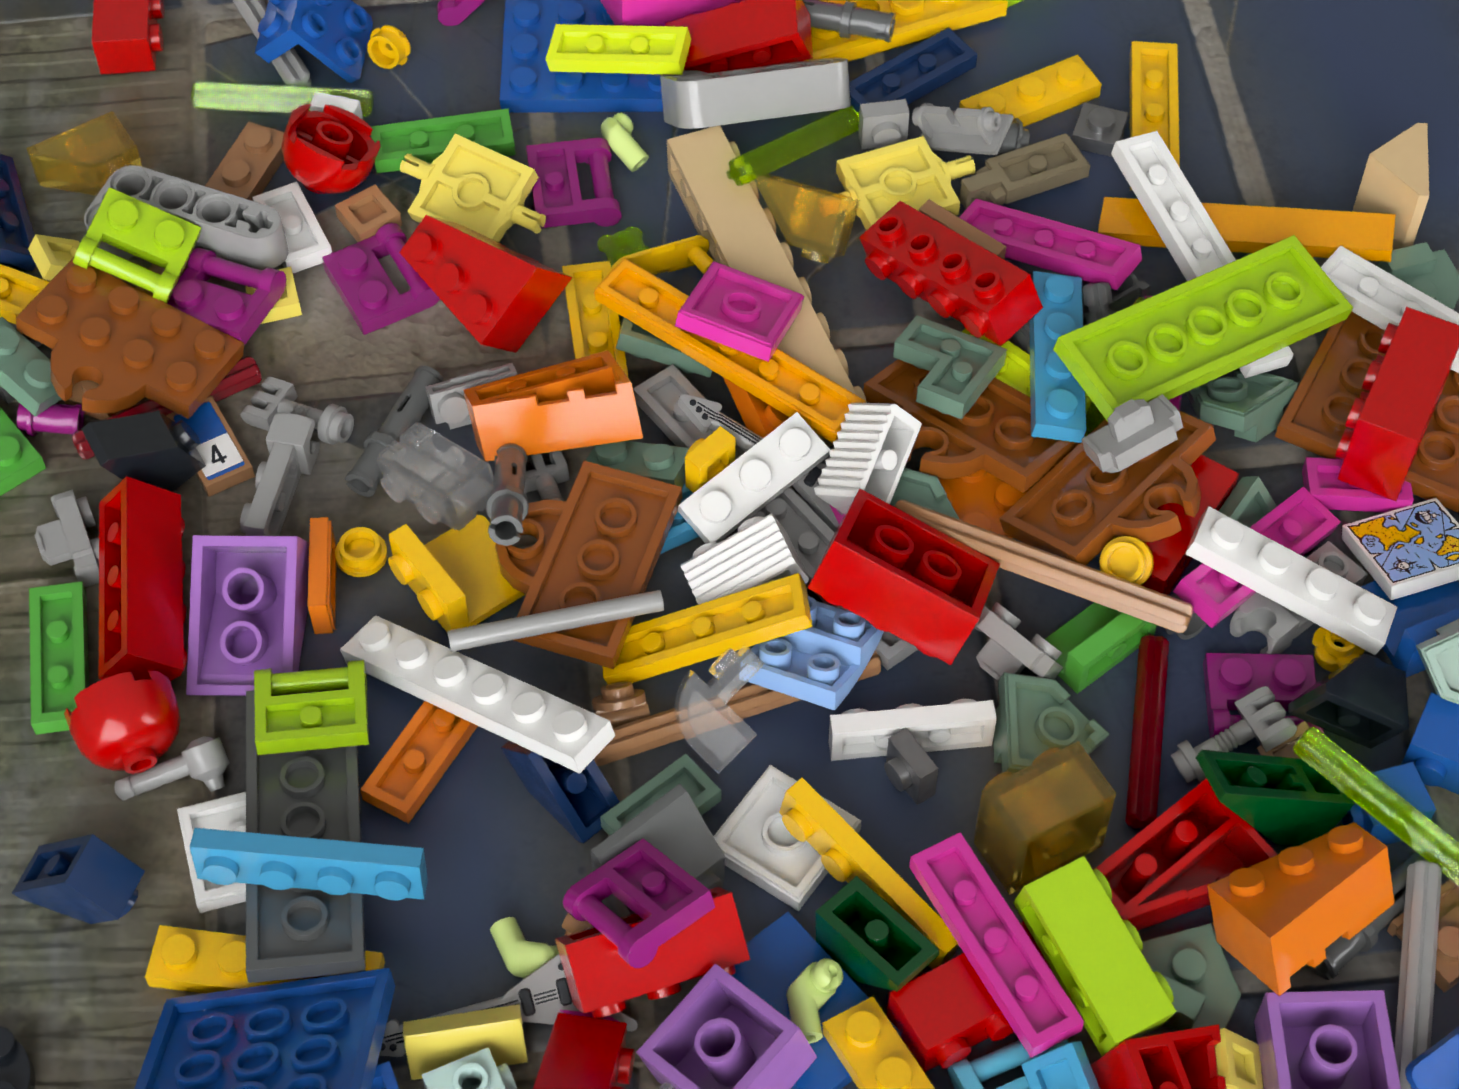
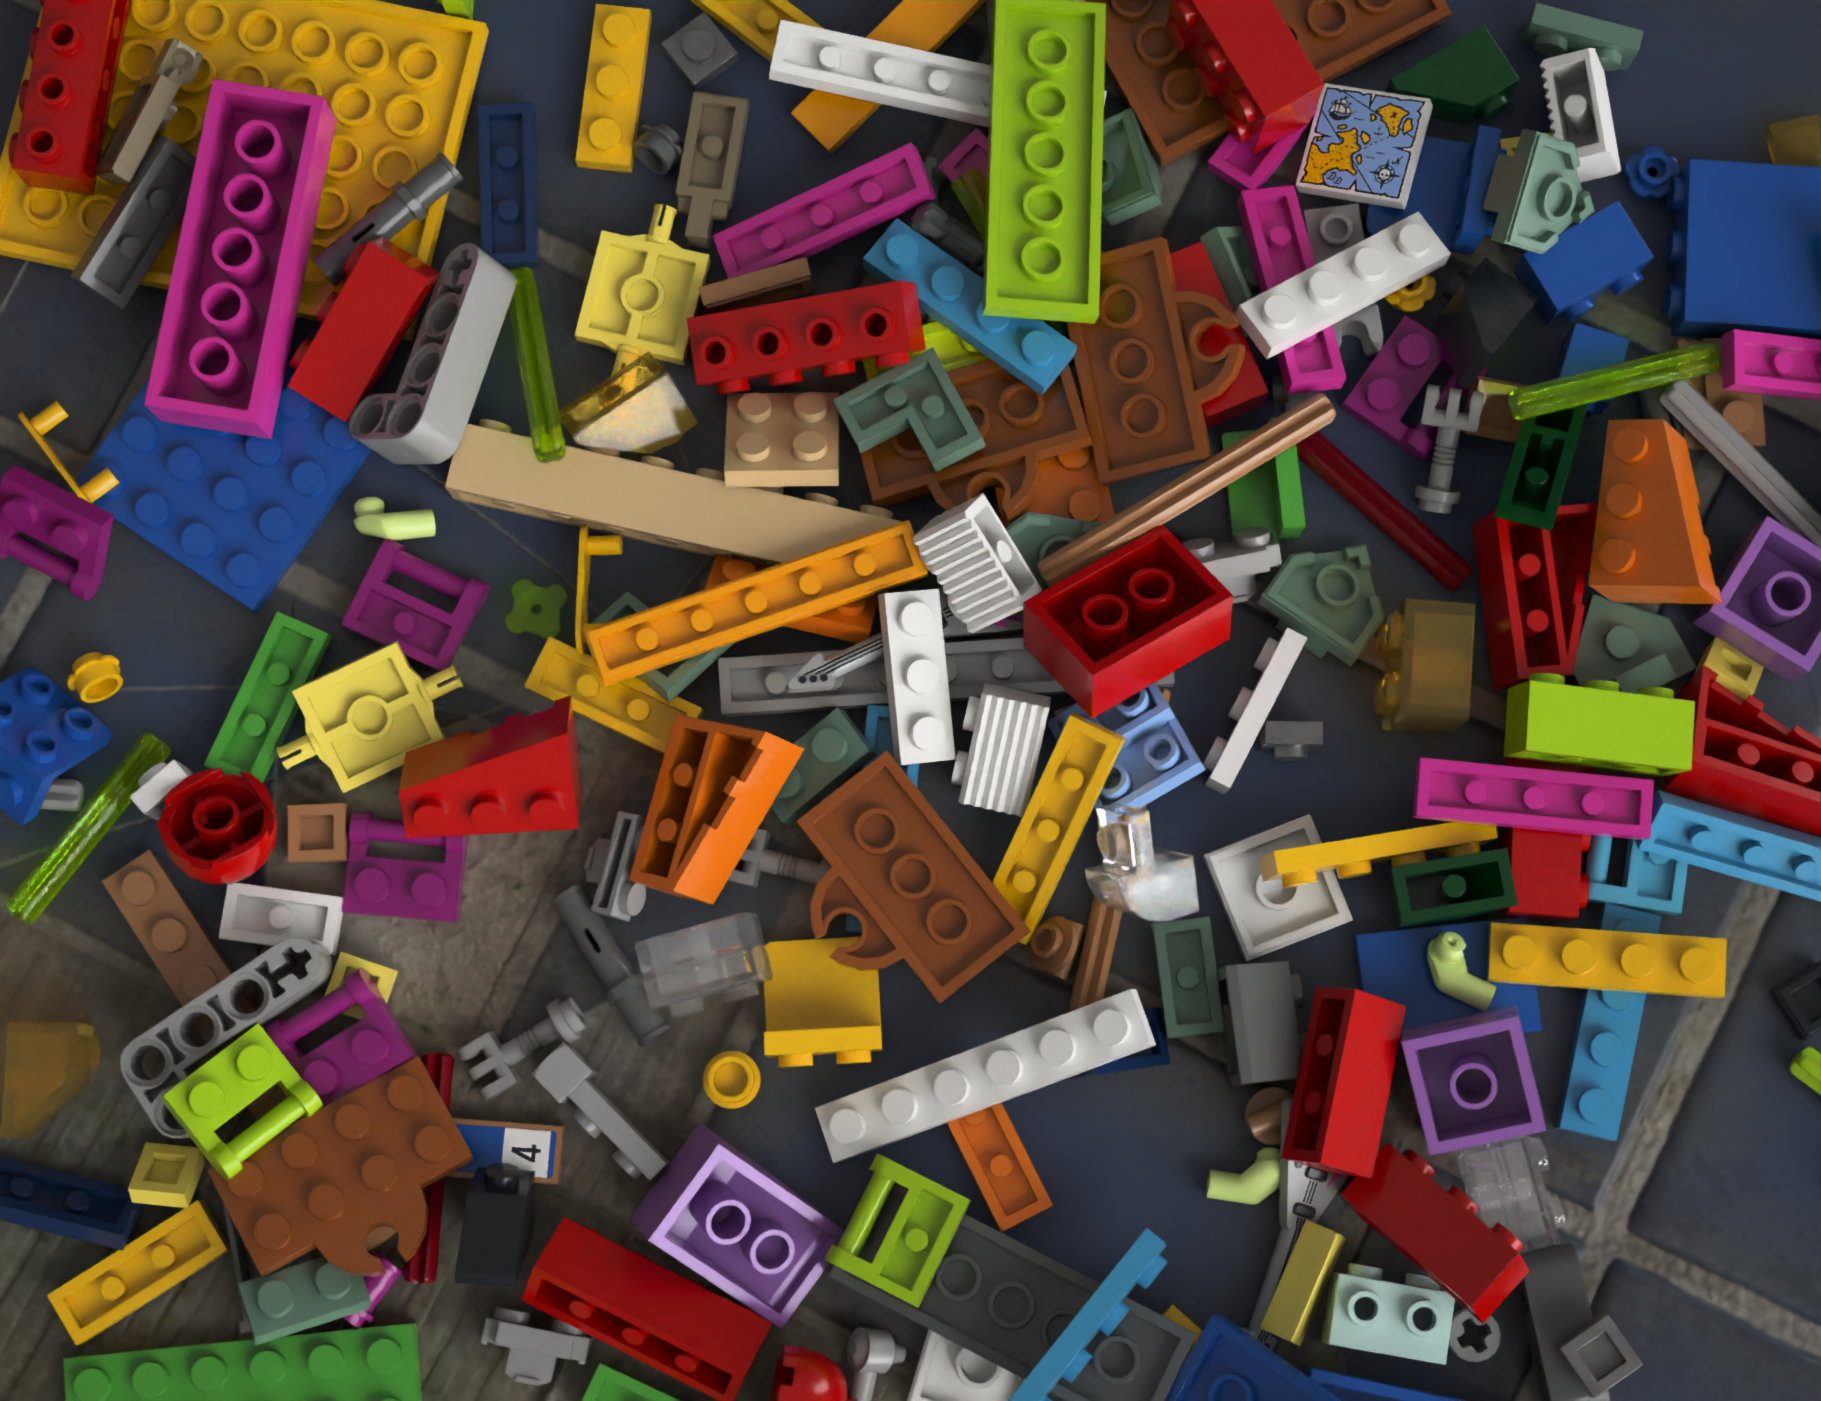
camera: 55 degrees left, 25 degrees up
(322, 576) = (740, 1132): orange tile -> none
(507, 502) = (810, 926): dark grey pin -> none
(555, 620) = (963, 960): light grey bar -> none
(618, 49) = (295, 458): neon yellow plate -> none
(651, 888) = (1319, 1058): magenta plate -> none
(708, 458) = (868, 705): yellow plate -> none
(740, 311) = (730, 566): dark pink tile -> none
(859, 308) = (781, 440): none -> tan plate
(883, 123) = (559, 257): light grey plate -> none
(962, 130) = (621, 187): light grey hinge -> none
(1127, 559) = (1234, 413): yellow plate -> none
(1133, 433) = (1124, 313): light grey piece -> none

